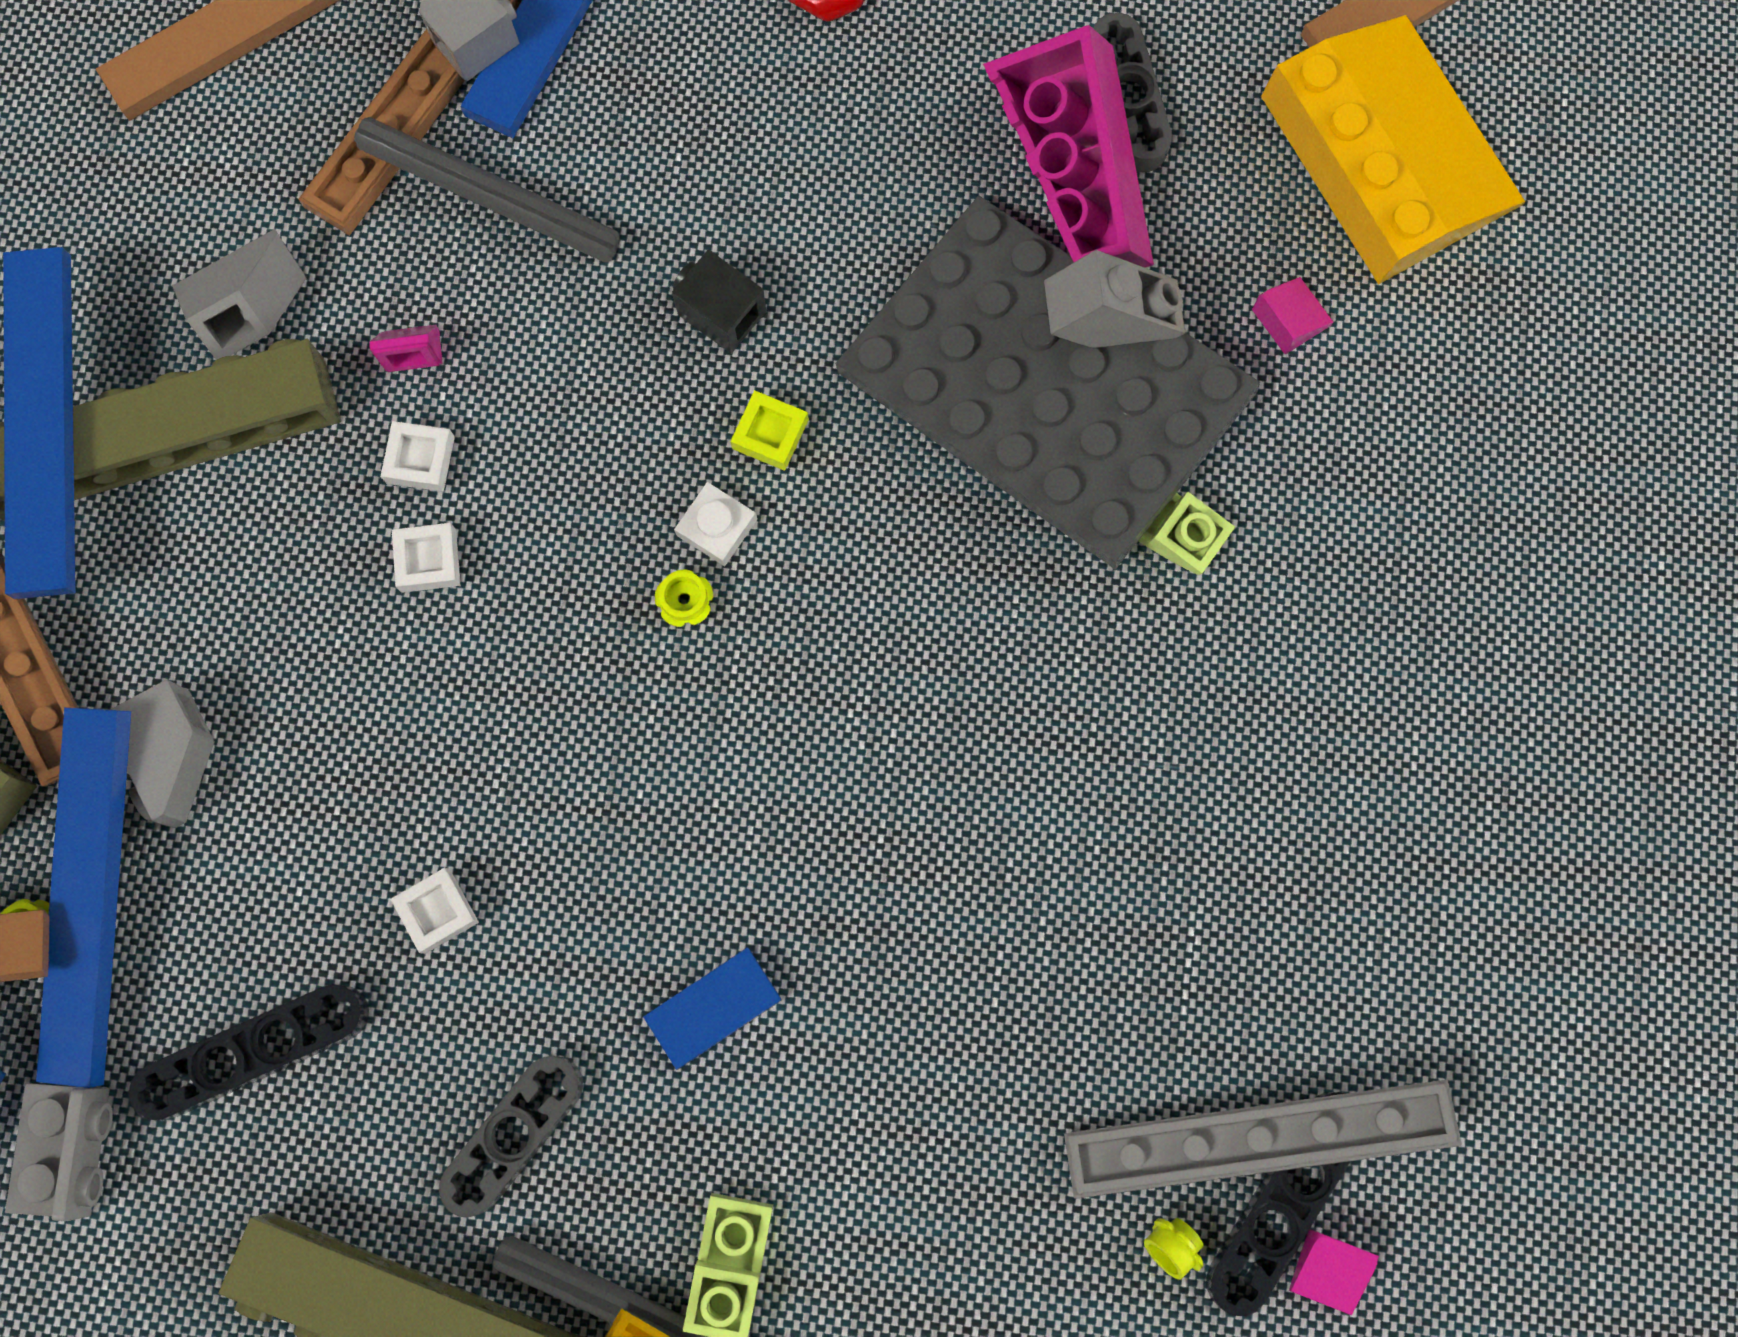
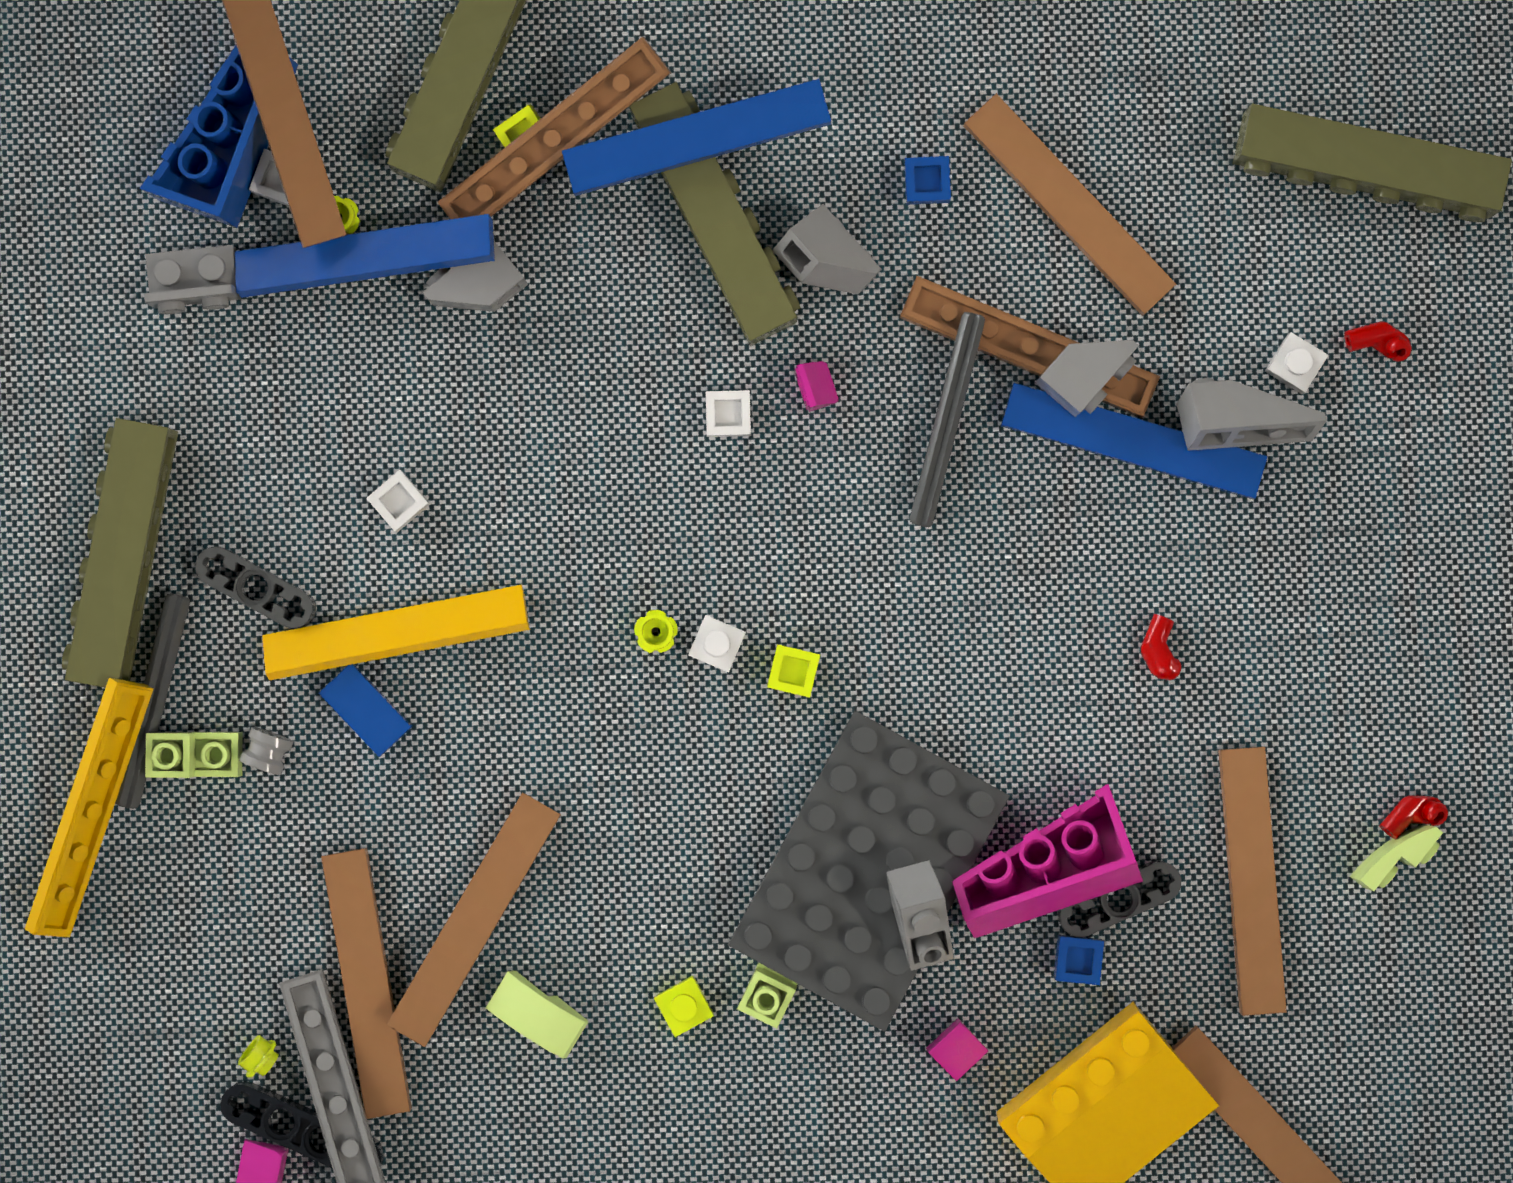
camera: 80 degrees right, 10 degrees up
(181, 166) = (927, 180): none -> blue plate
(251, 1056) = (276, 396): black beam -> none
(425, 557) = (652, 437): white plate -> none
(614, 950) = (395, 632): none -> yellow tile
(718, 300) = (888, 612): pearl dark grey brick -> none
(742, 1158) = (266, 751): none -> light grey wheel
(1030, 906) = (473, 919): none -> medium nougat tile
(1094, 1073) = (366, 982): none -> medium nougat tile
(1171, 840) = (537, 1016): none -> yellowish green slope
(1187, 646) = (684, 1006): none -> neon yellow plate
(1199, 147) = (1078, 959): none -> blue plate

